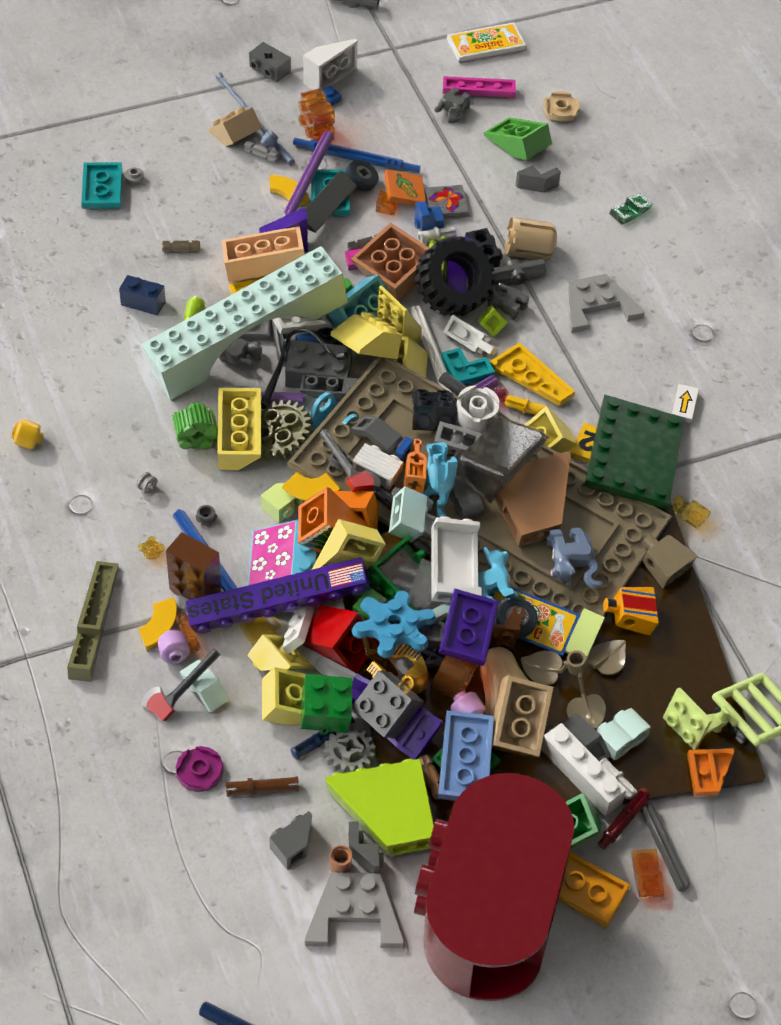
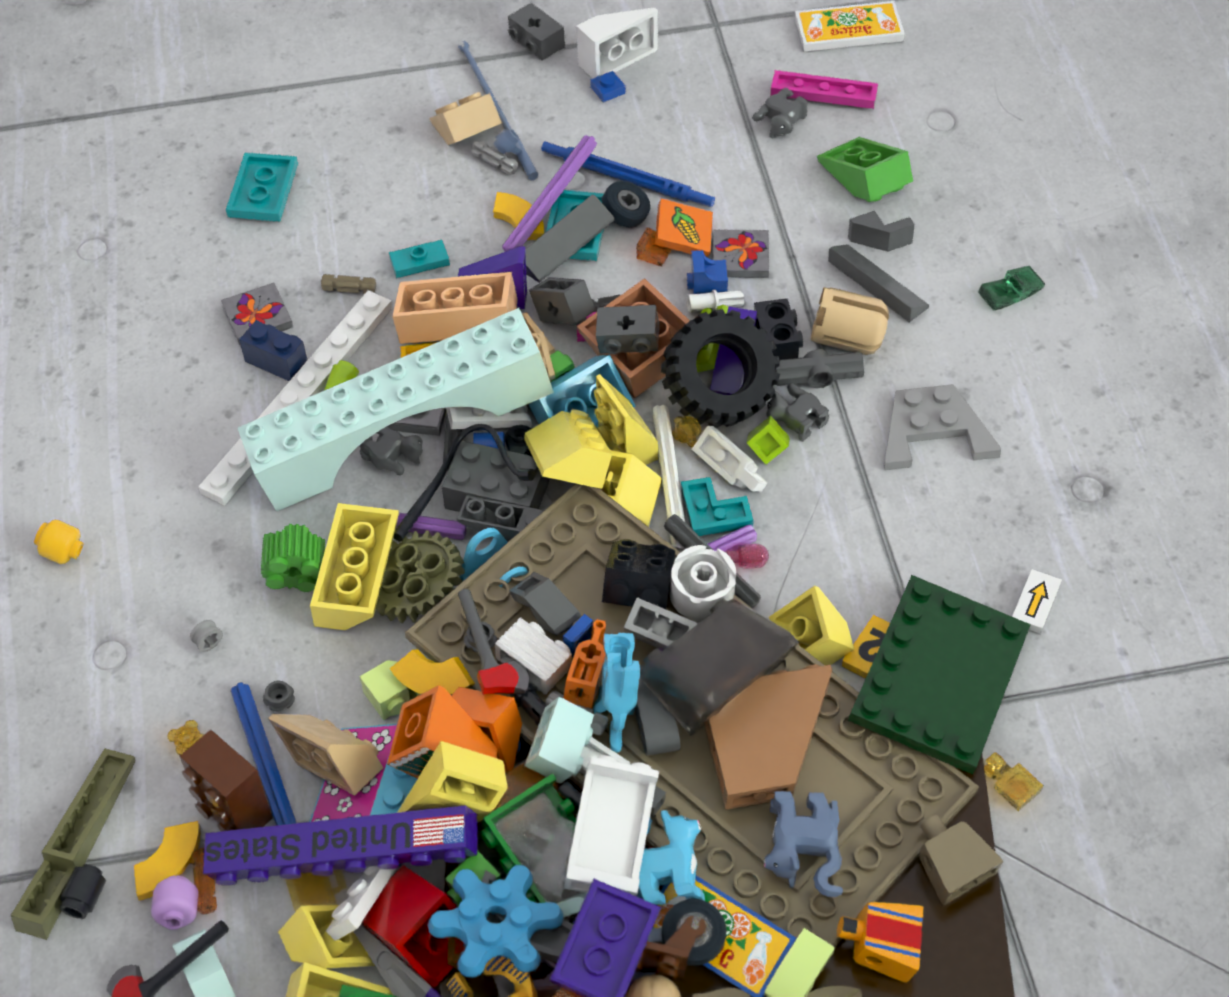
camera: 15 degrees right, 0 degrees up
(109, 648) = (82, 891): none -> black brick
(116, 268) = (256, 304): none -> flat silver tile
(134, 175) = (311, 177): light grey plate -> none
(168, 317) = (308, 381): none -> white plate
(226, 224) = (419, 258): none -> teal plate
(253, 542) = (328, 750): none -> tan slope
(315, 114) = (579, 110): clear orange brick -> none
(337, 242) = (562, 300): none -> dark grey brick
(388, 256) = (627, 329): none -> dark grey brick
(440, 317) = (686, 430): none -> clear yellow plate
(523, 405) = (787, 577): yellow axle -> none
(533, 374) = (809, 527): yellow wing -> none
(541, 212) = (877, 281): none -> dark grey slope
(567, 112) = (928, 136): tan plate -> none

